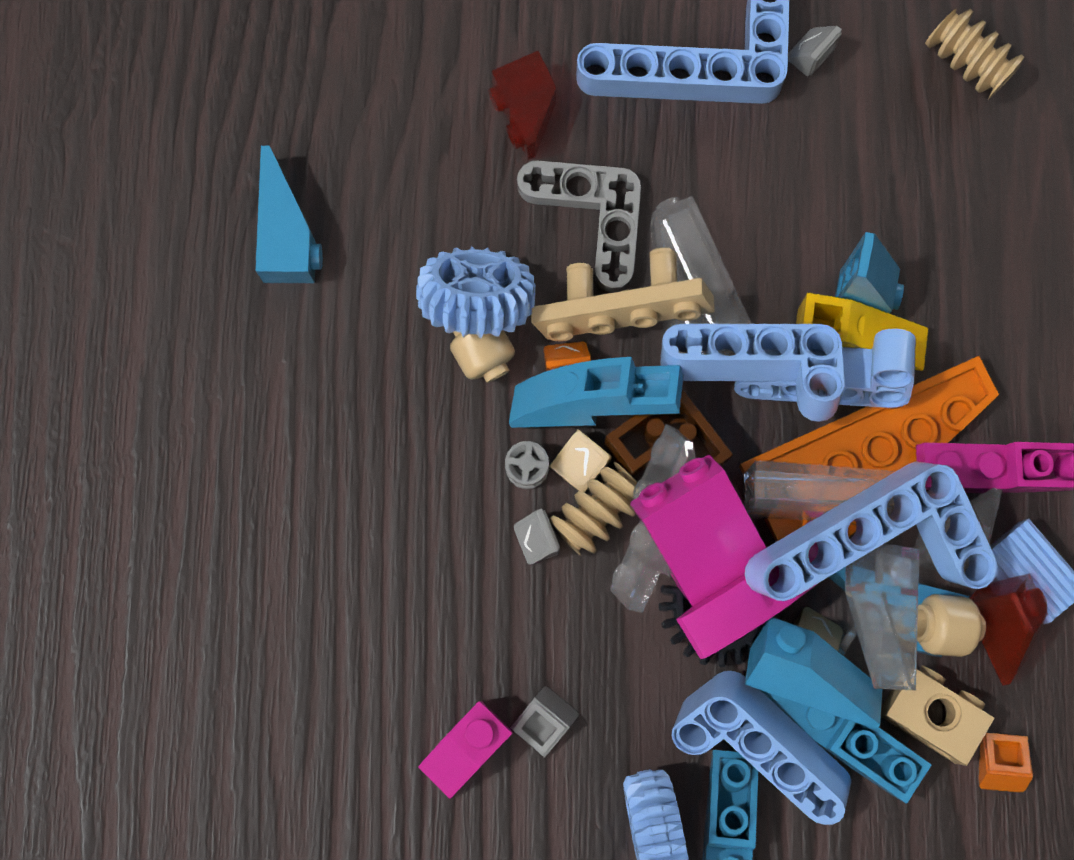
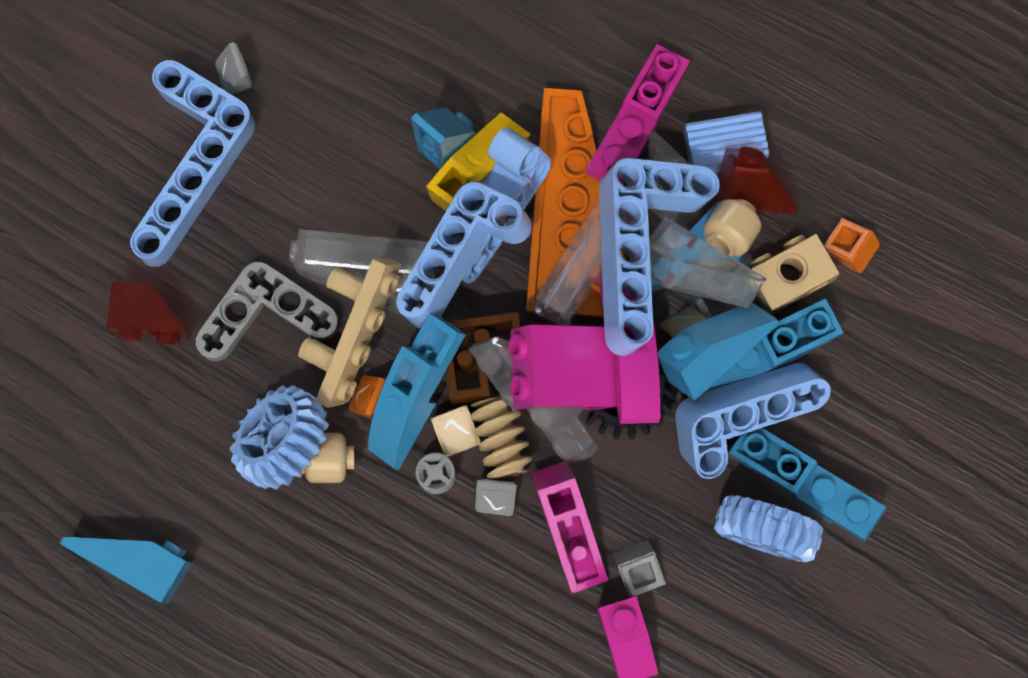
camera: 60 degrees left, 0 degrees up
(547, 626) = (569, 526): none -> dark pink slope

